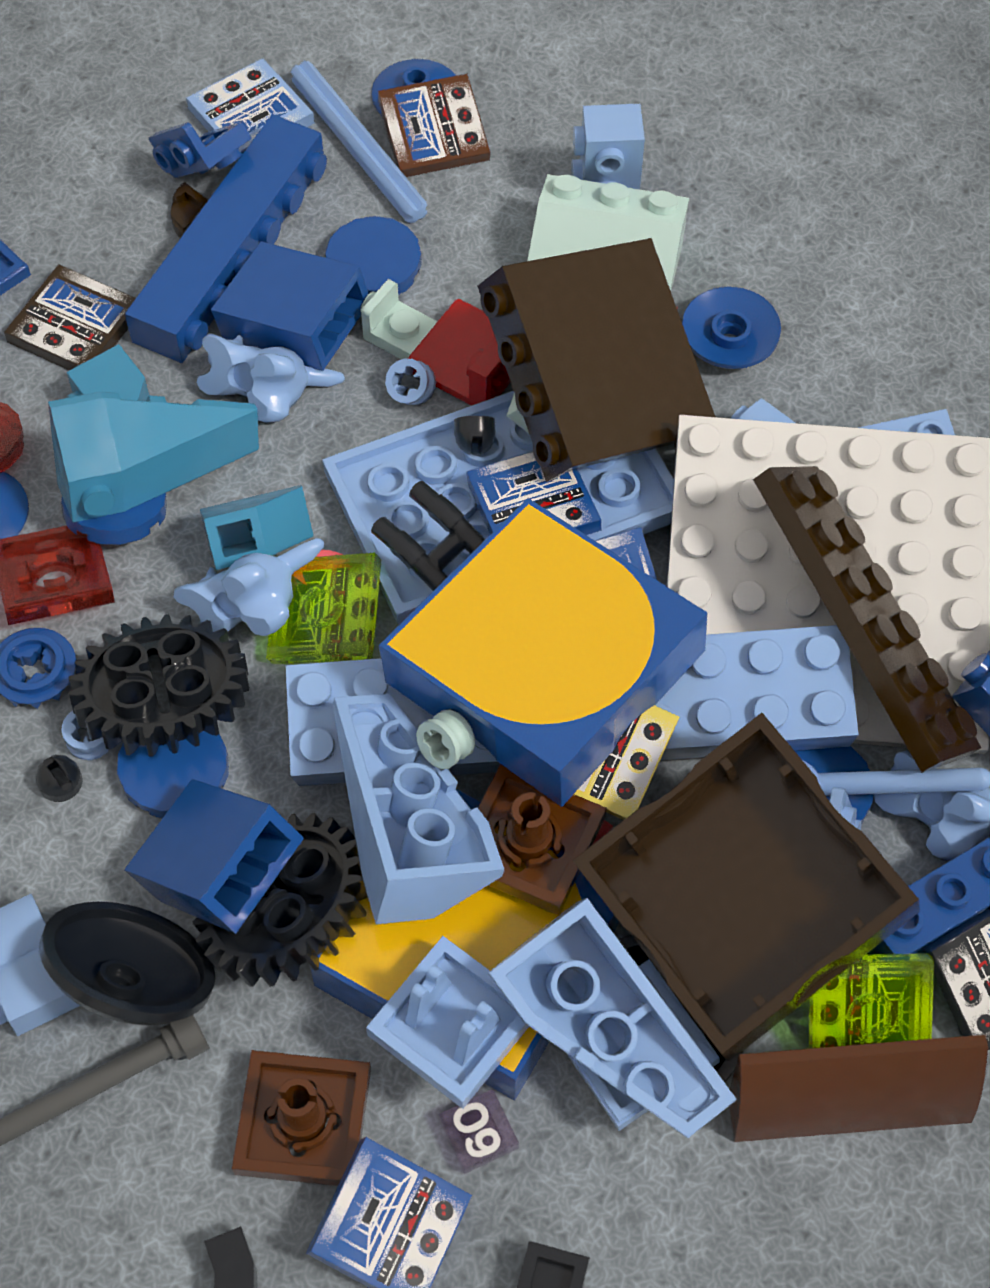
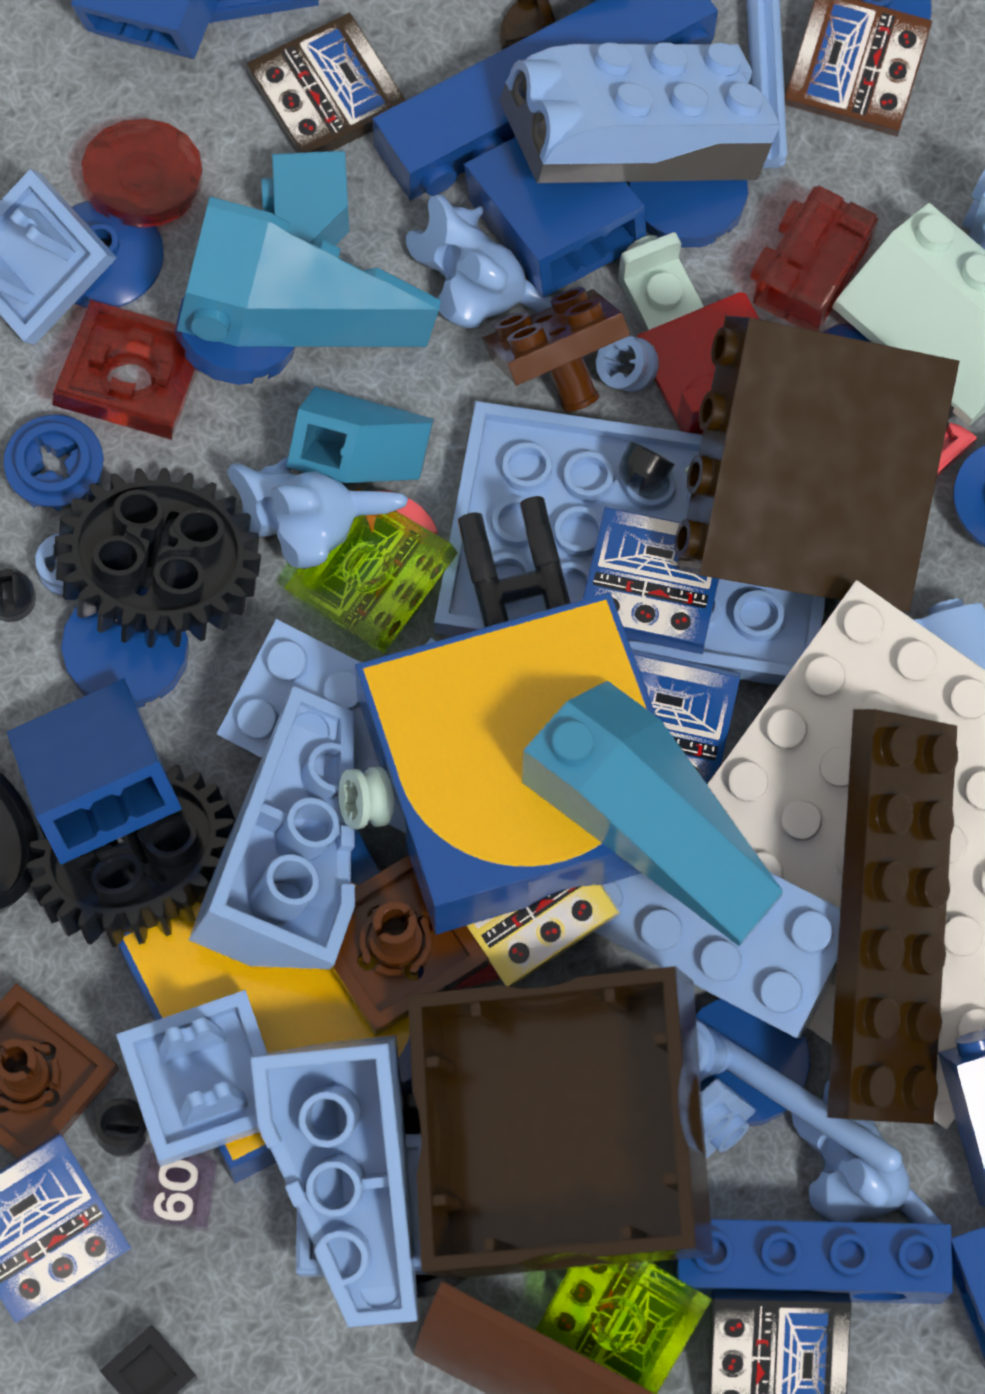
camera: 30 degrees right, 10 degrees up
(314, 212) = (639, 113): none -> light blue piece
(355, 389) = (557, 342): none -> reddish brown plate
(399, 1102) = (123, 1117): none -> black hinge
(489, 240) = (814, 259): none -> clear red brick
(655, 614) = (641, 797): none -> dark azure wedge

